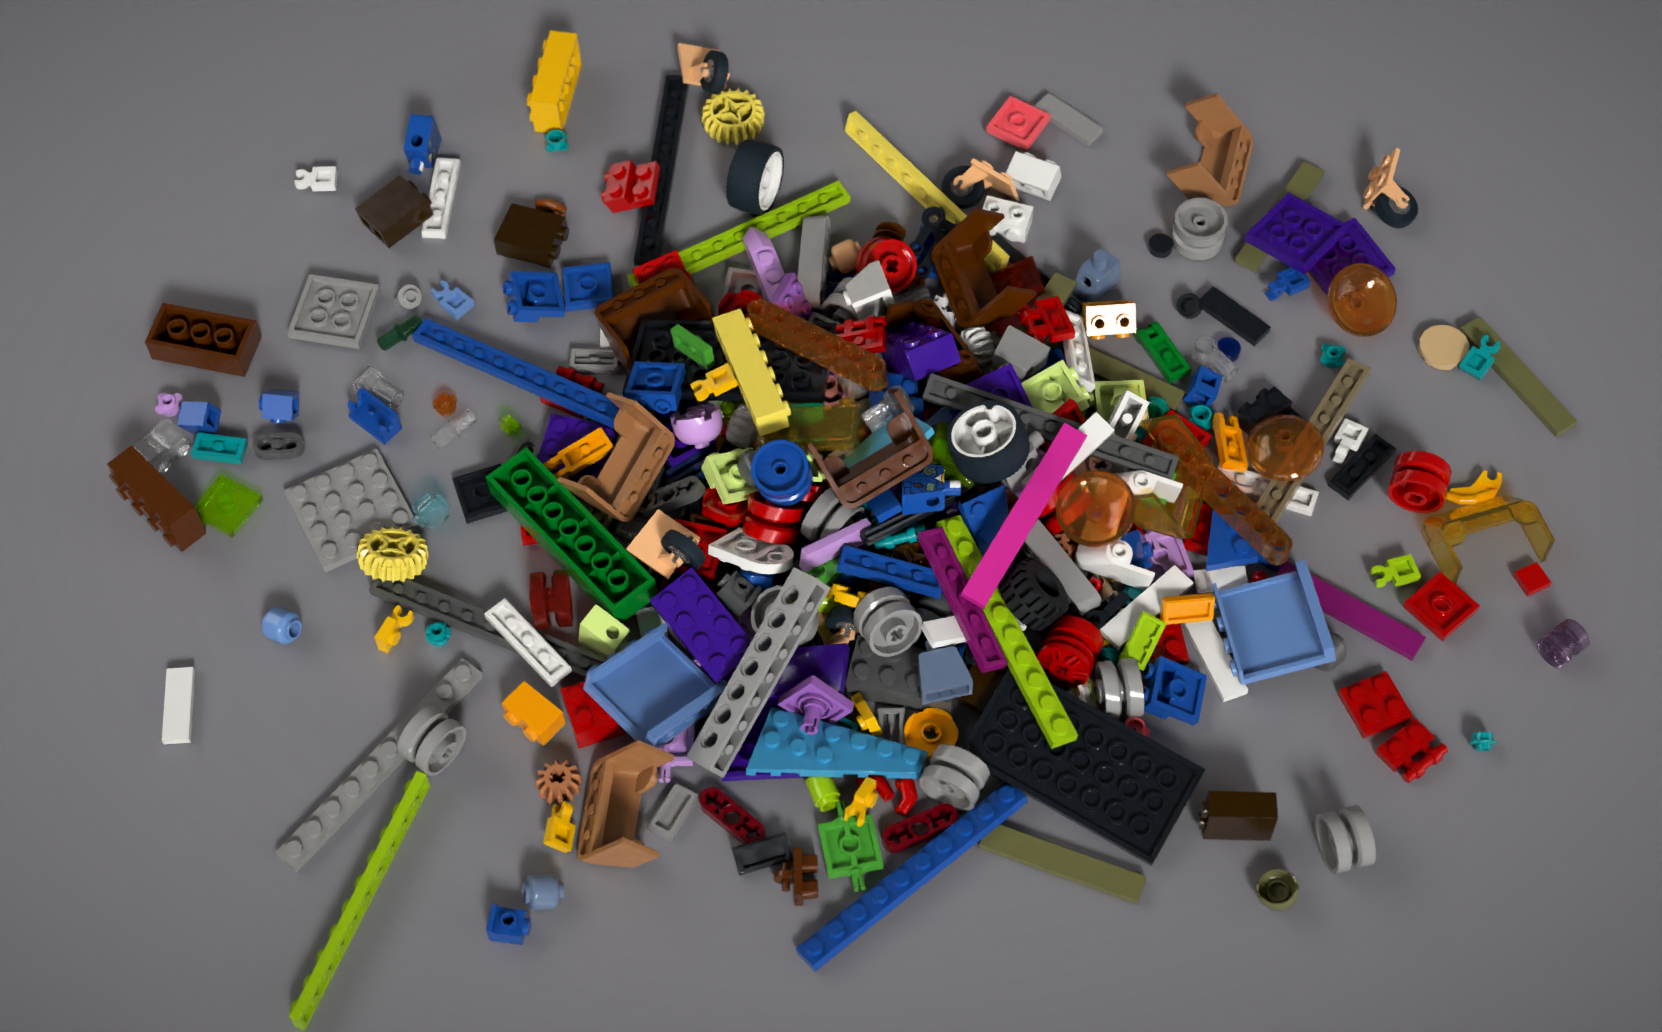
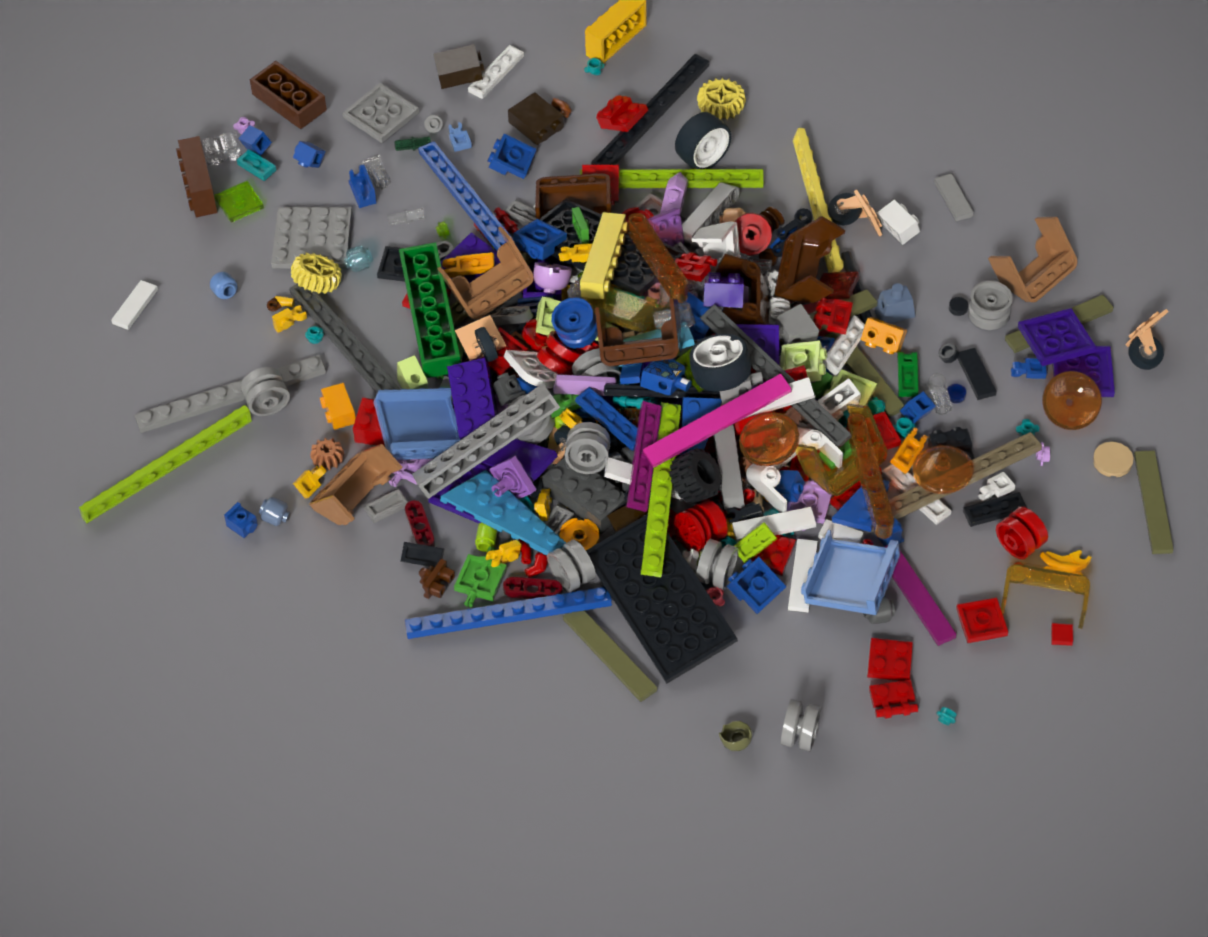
camera: 30 degrees right, 5 degrees down
(279, 446) = (292, 179): flat silver plate -> none
(319, 179) = (427, 28): white plate -> none
(365, 613) = (279, 301): none -> arm
(421, 143) = (503, 30): blue torso -> none
(445, 409) = (412, 200): clear orange plate -> none
(528, 642) = (363, 362): white tile -> none
(551, 599) = (393, 342): clear red wheel -> none
(587, 286) = (550, 163): blue plate -> none
(704, 67) = (721, 58): plate -> none
(942, 674) = (601, 498): sand blue torso -> none
(1016, 221) = (860, 242): white brick -> none
(1018, 123) = (915, 184): coral plate -> none
(1187, 608) = (799, 537): light orange tile -> none
(1238, 815) = (740, 677): dark brown brick -> none
(1374, 378) = (1044, 454): none -> lavender plate
(1399, 570) = (970, 584): lime plate -> none
(1479, 361) = (1130, 478): teal plate -> none
(1564, 641) = (1047, 682): clear purple wheel -> none

